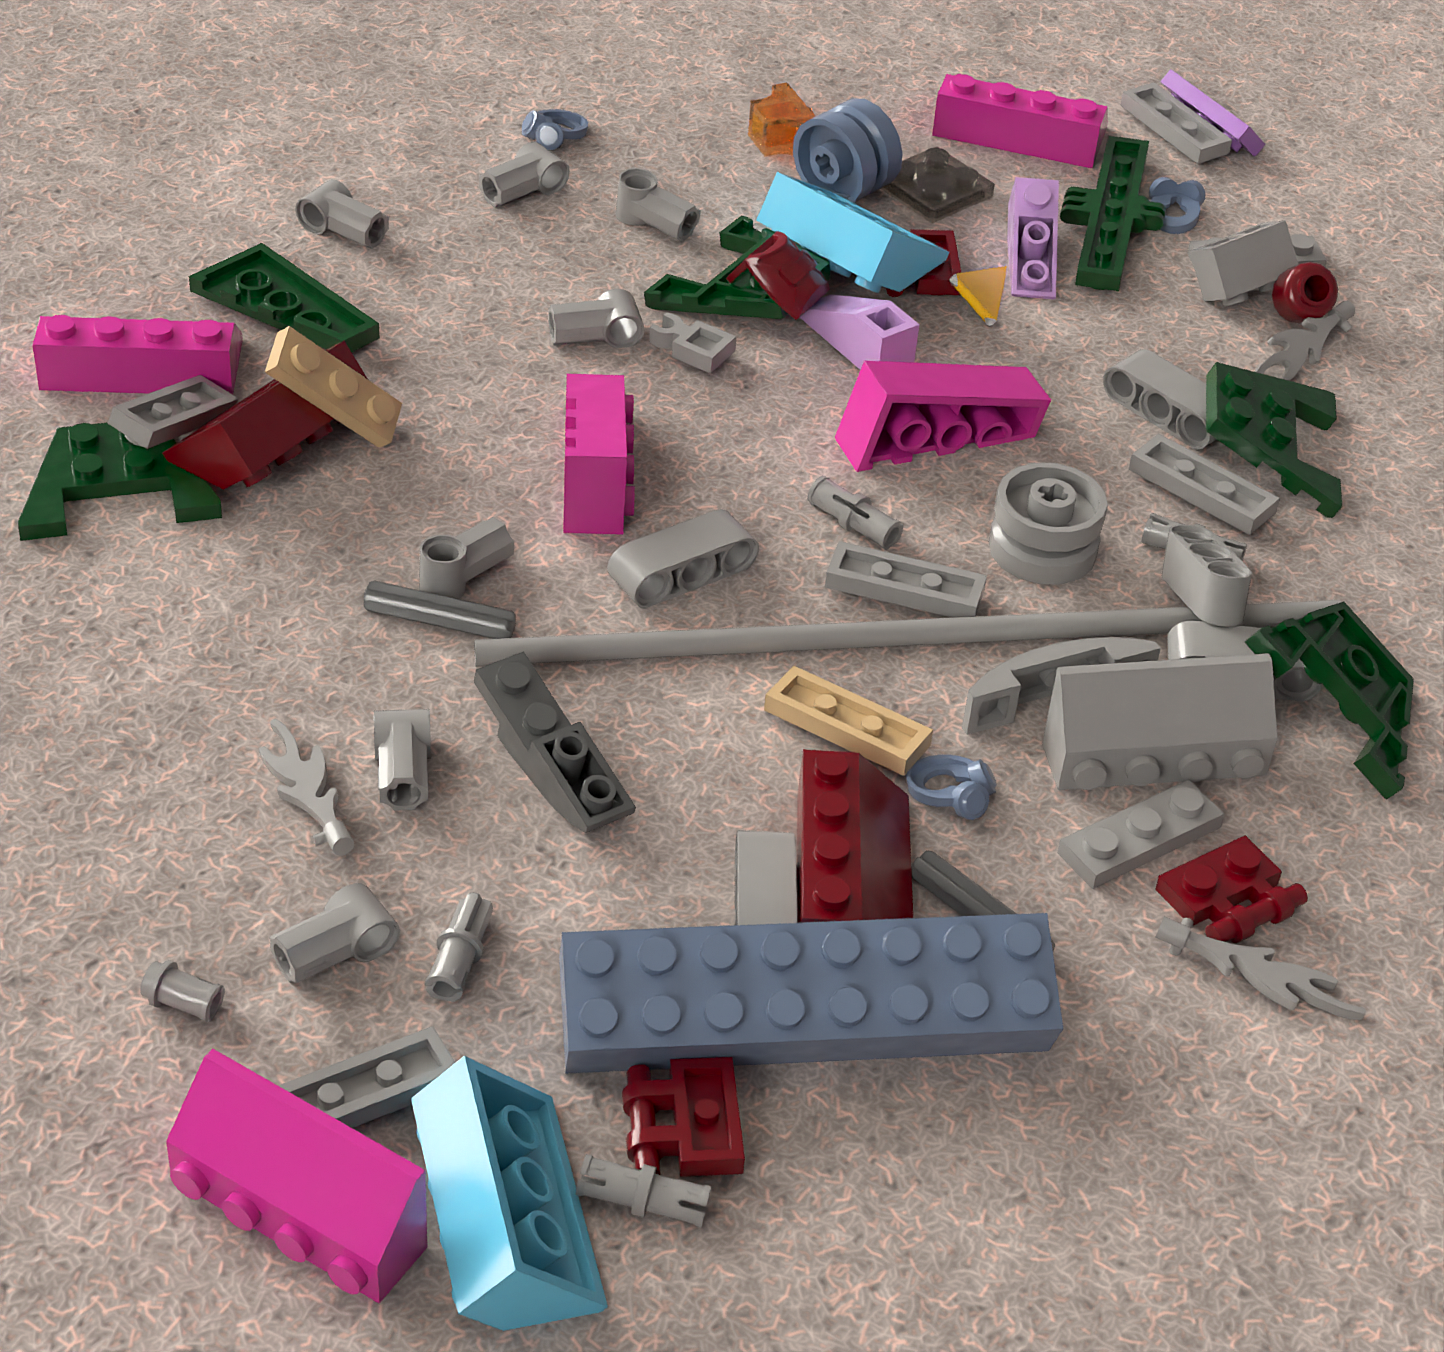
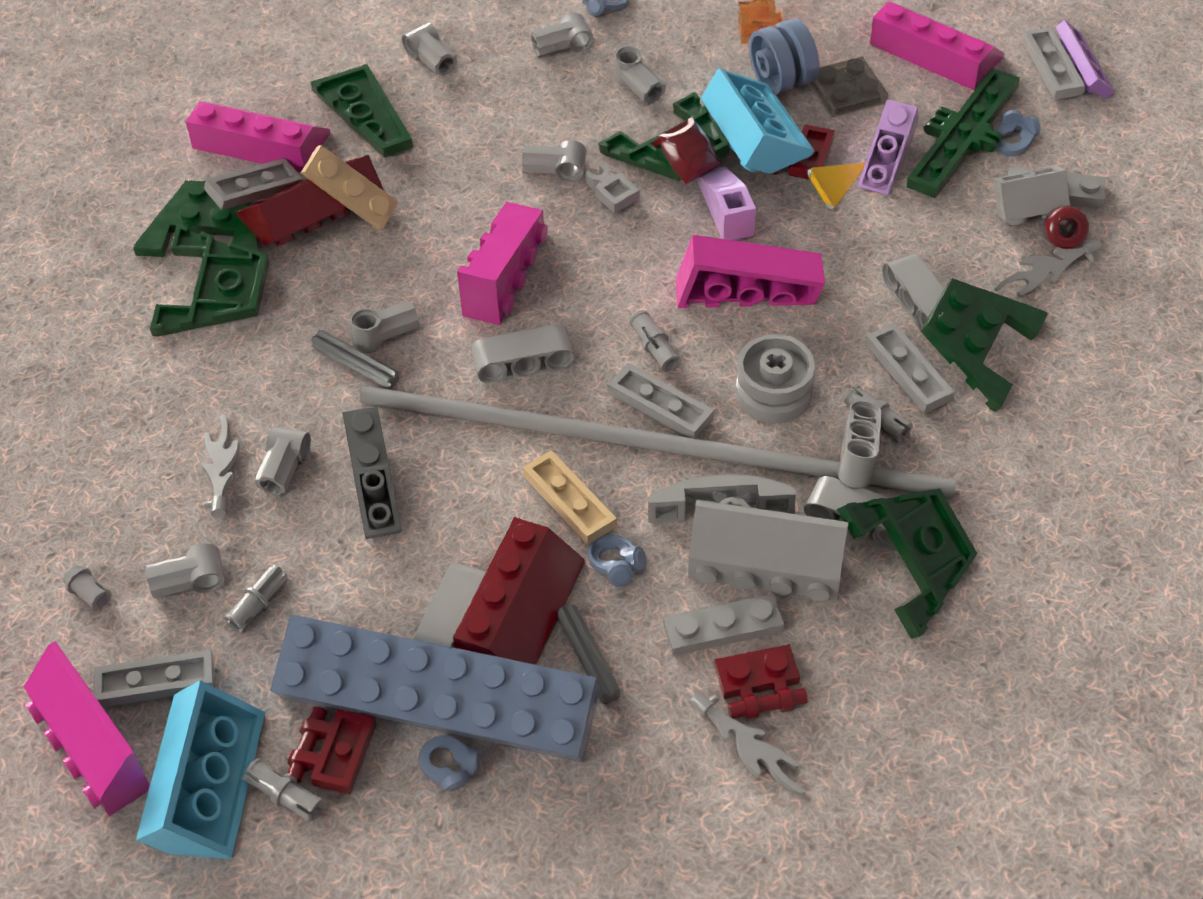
camera: 25 degrees right, 10 degrees up
(195, 546) = (226, 286): none -> dark green wing
(893, 1082) = (450, 780): none -> sand blue piece

